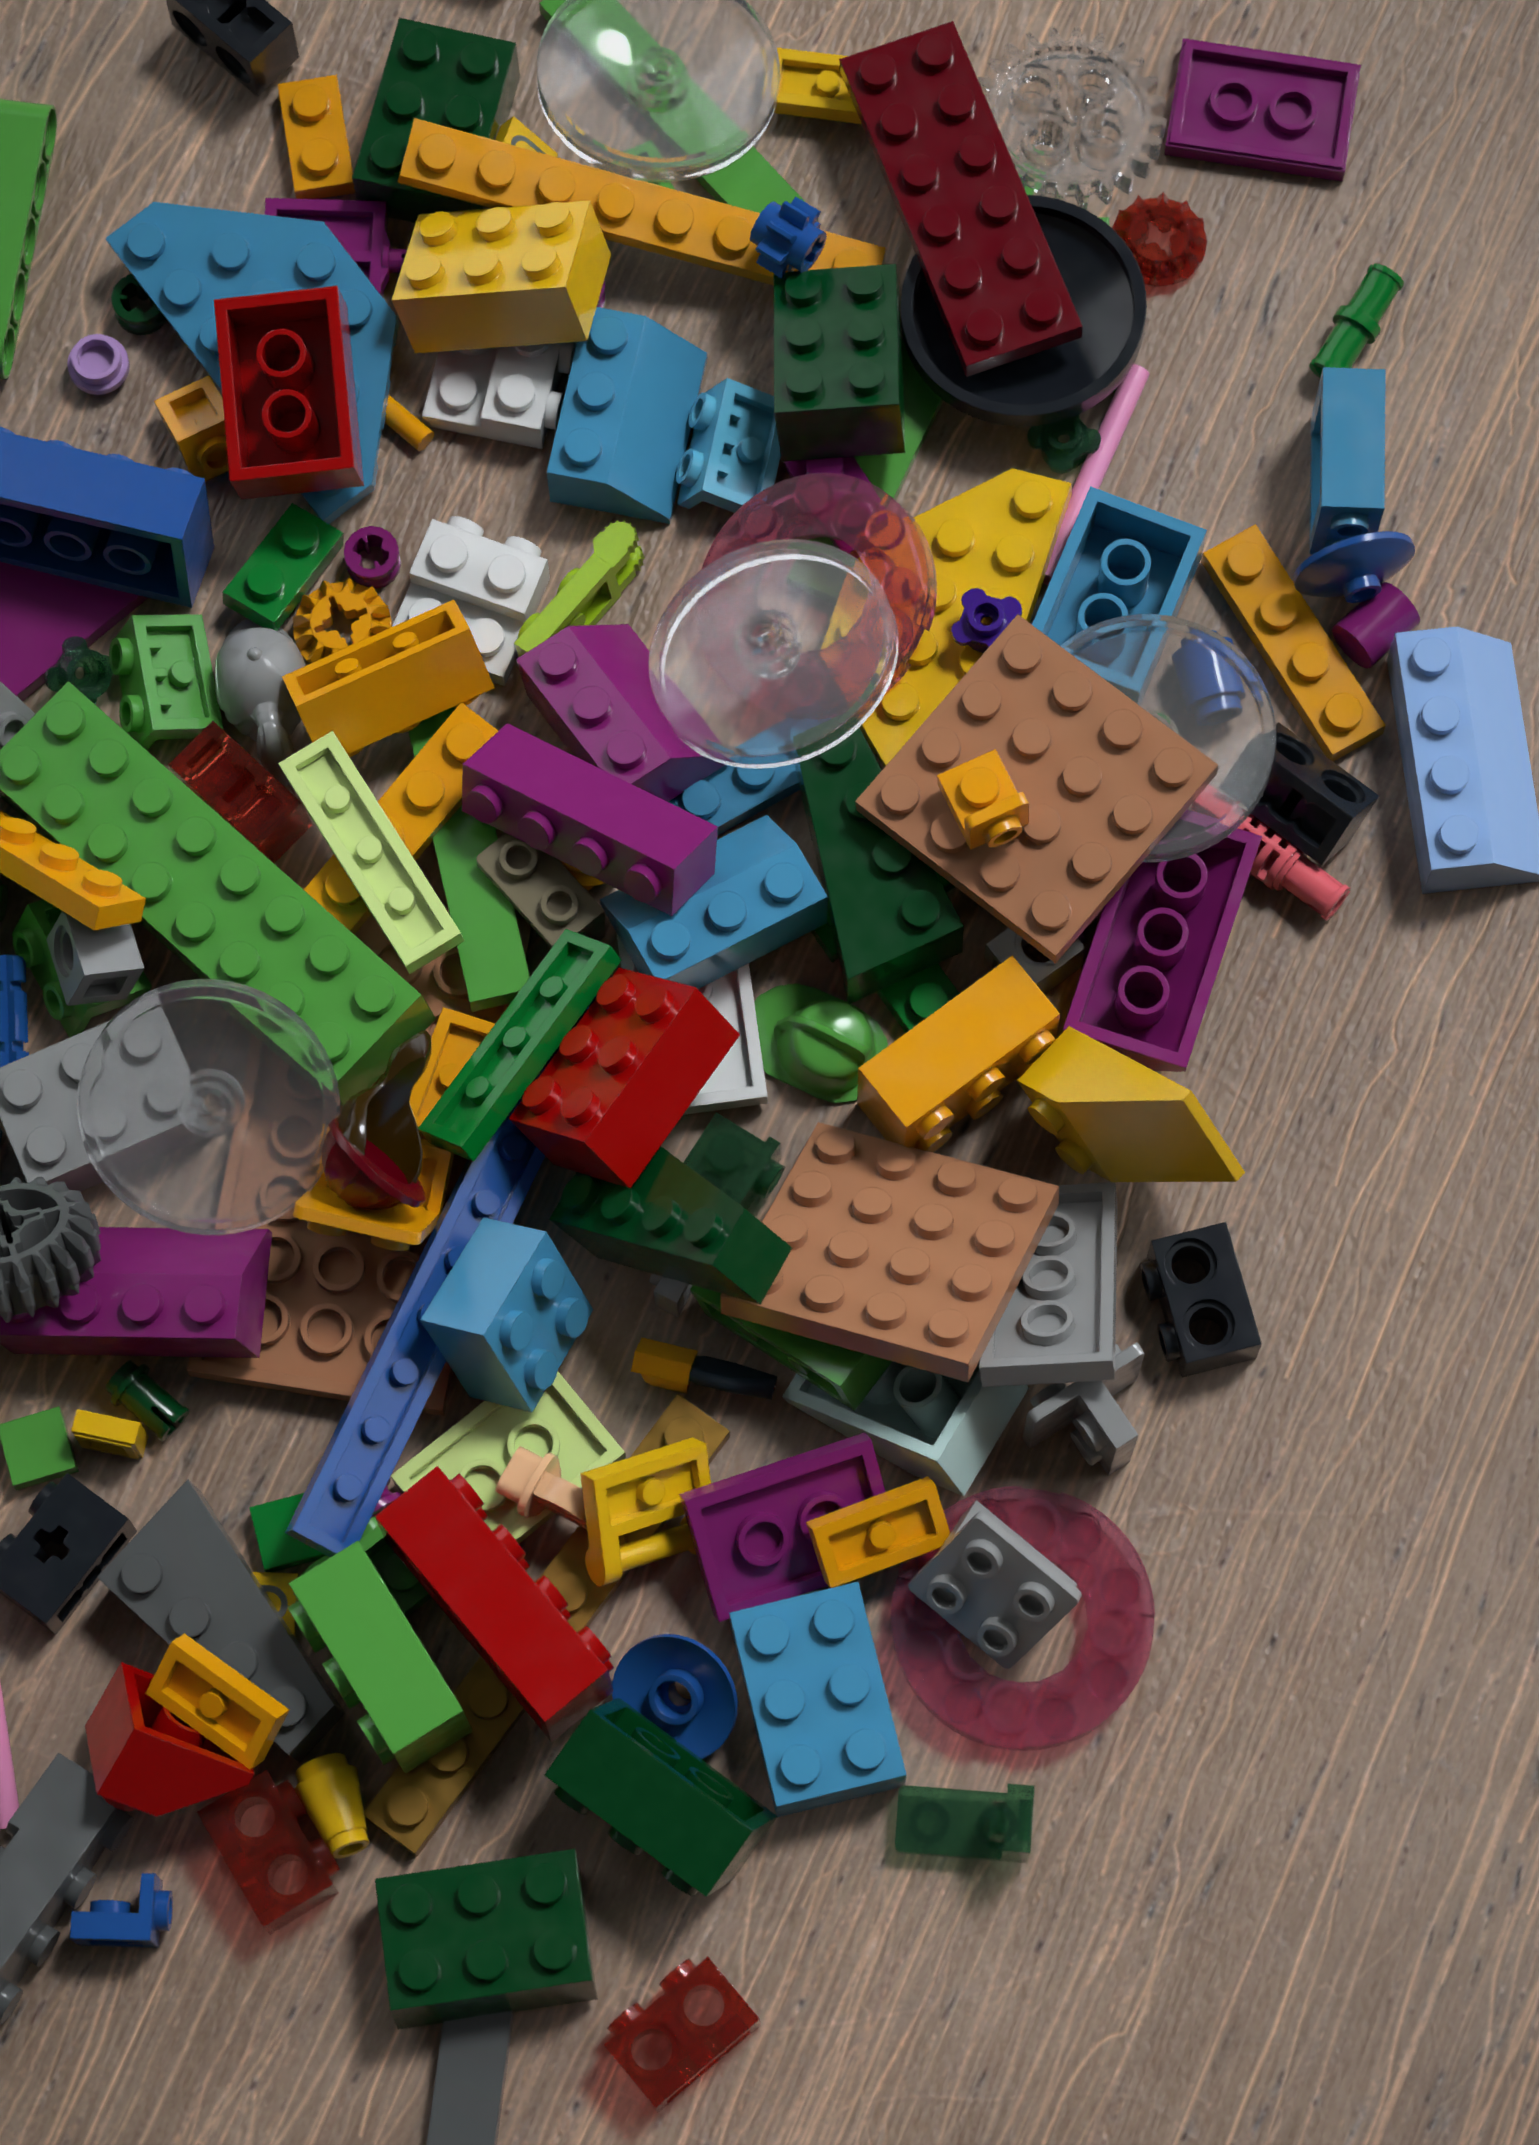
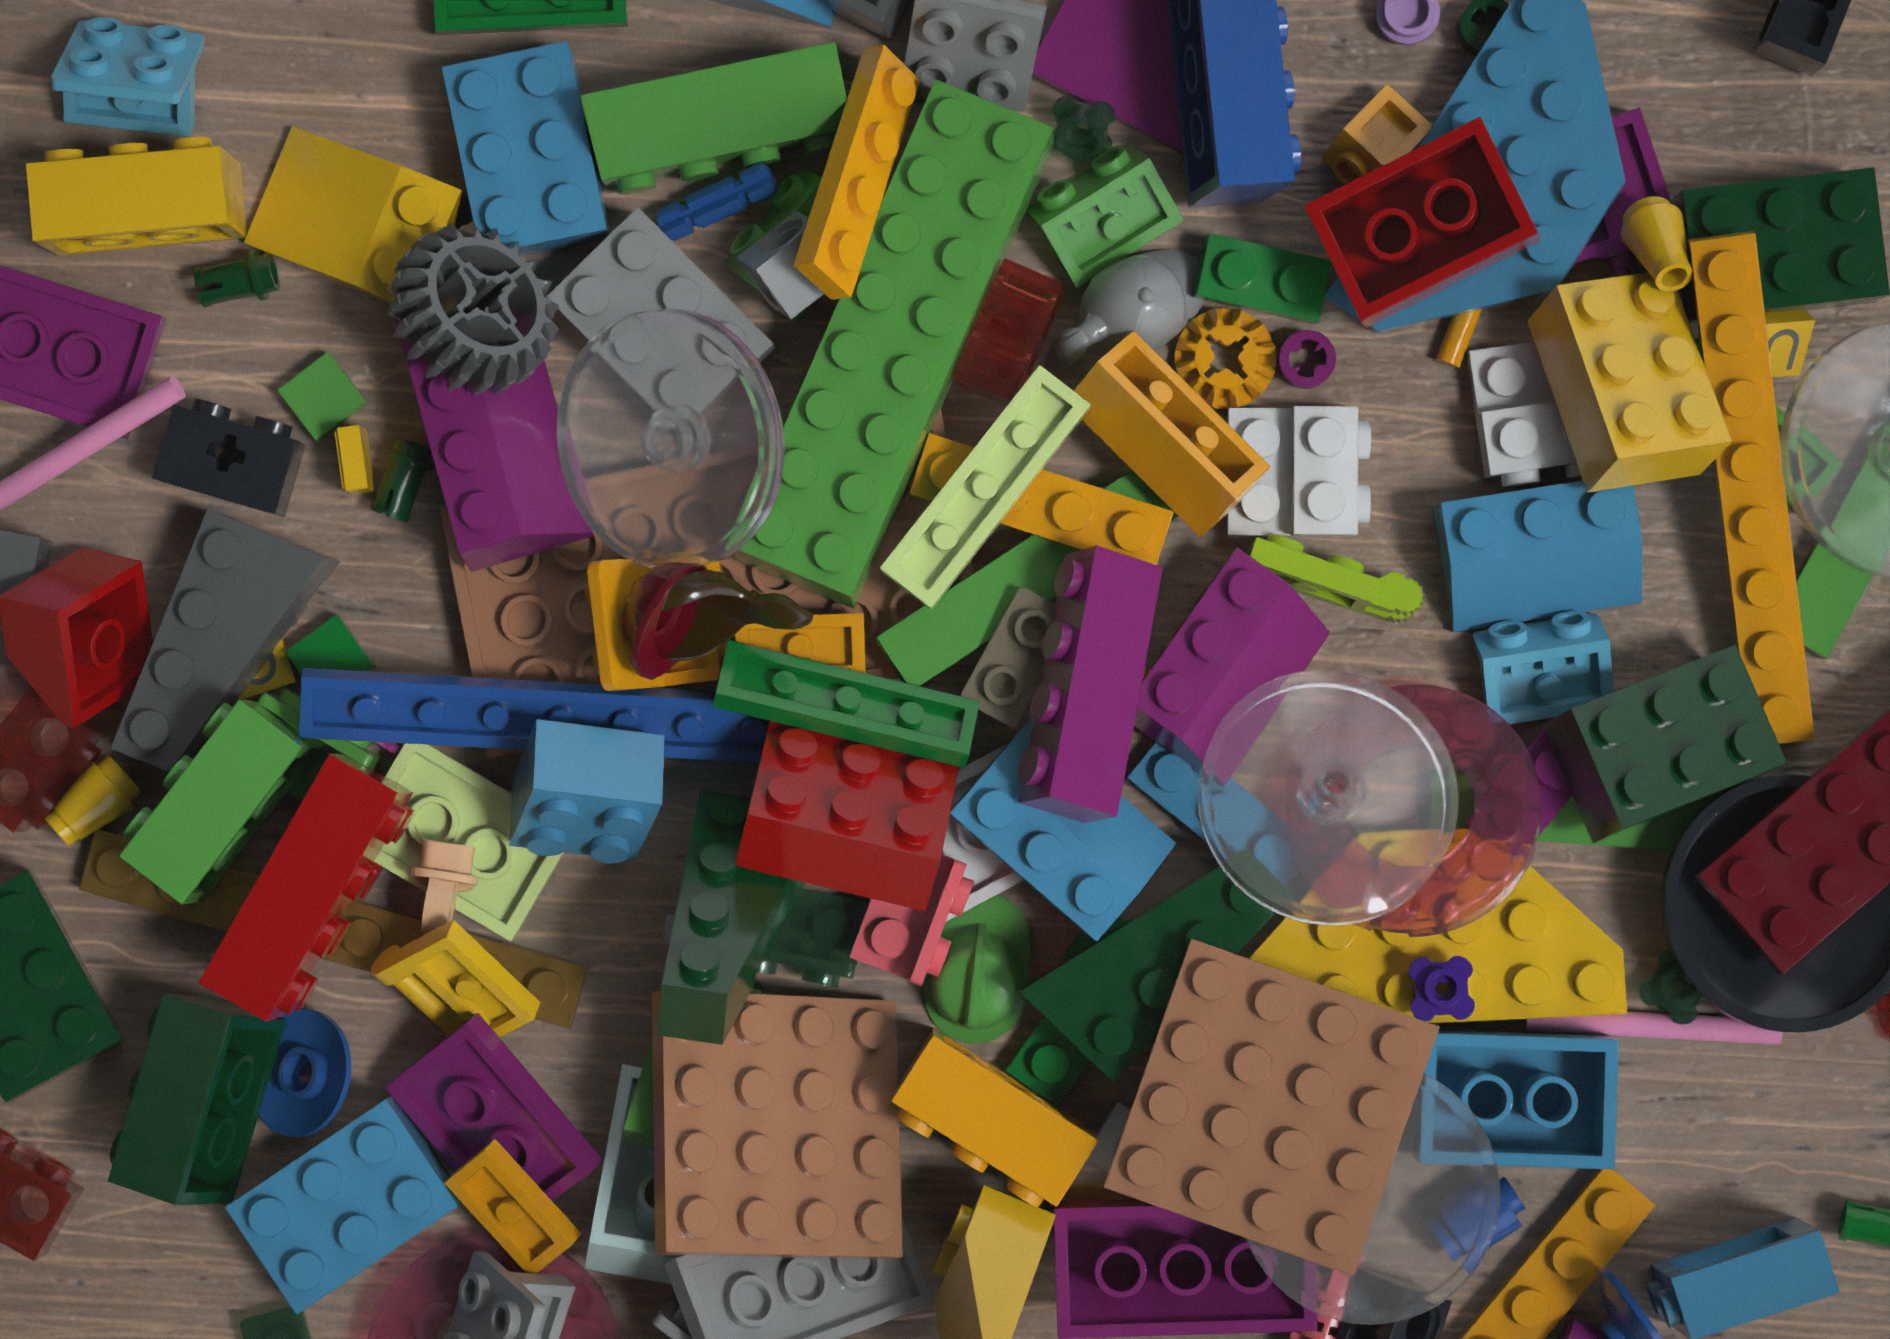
camera: 70 degrees right, 15 degrees up
(217, 1701) = (126, 668): light orange plate -> none
(316, 137) = (1729, 128): light orange plate -> none
(387, 211) = (1657, 239): none -> yellow cone
(677, 1367) = (616, 958): piece -> none
(757, 1076) = (909, 939): none -> coral bracket
(788, 237) = (1771, 648): blue gear -> none
(984, 801) = (1227, 1068): light orange bracket -> none

